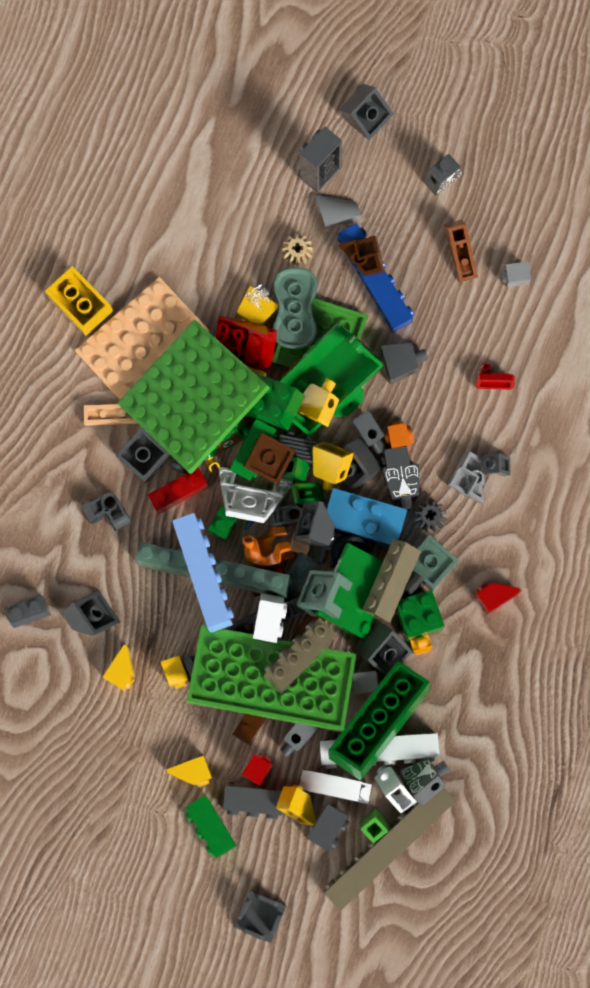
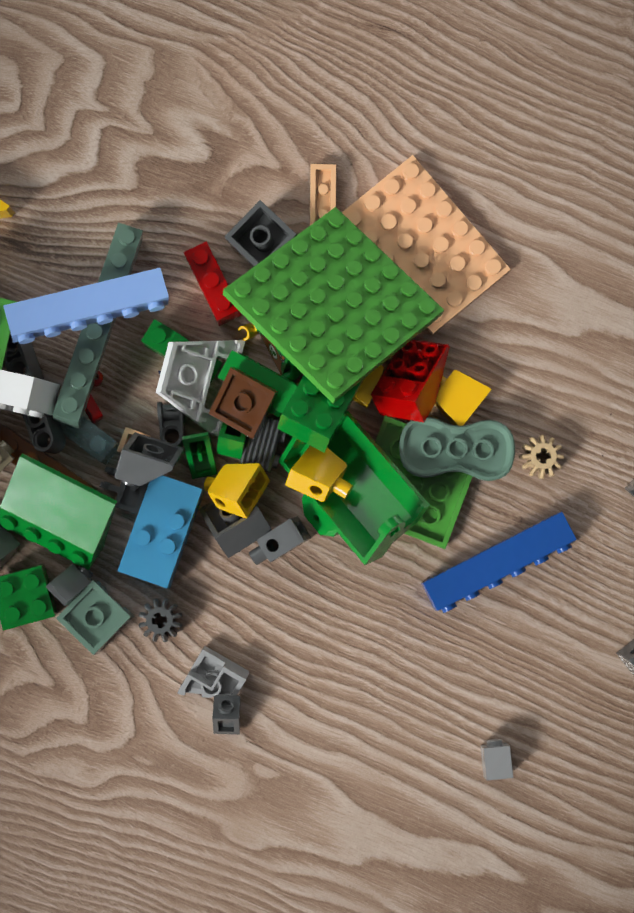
camera: 85 degrees right, 5 degrees up
(28, 611) = (63, 86): dark grey brick -> none
(78, 301) = (478, 159): yellow brick -> none
(90, 615) = (52, 167): dark grey slope -> none
(97, 510) = (185, 203): dark grey piece -> none
(258, 294) = (475, 396): clear tile -> none
(259, 552) = (124, 388): orange piece -> none
(320, 592) = (50, 463): sand green panel -> none
(337, 210) = (597, 514): light grey slope -> none
(340, 542) = (128, 500): black tyre -> none
(365, 255) = (528, 548): reddish brown slope -> none
(391, 580) = (65, 560): dark tan brick -> none
(395, 457) = (242, 577): dark grey brick -> none
(399, 435) = (273, 583): orange brick -> none
(401, 360) = (379, 593): dark grey torso -> none
(402, 484) = (206, 585): dark grey torso -> none
(461, 250) = (534, 683): dark orange slope -> none
(490, 380) = (345, 712): red piece -> none
(495, 595) = (46, 703): red slope -> none

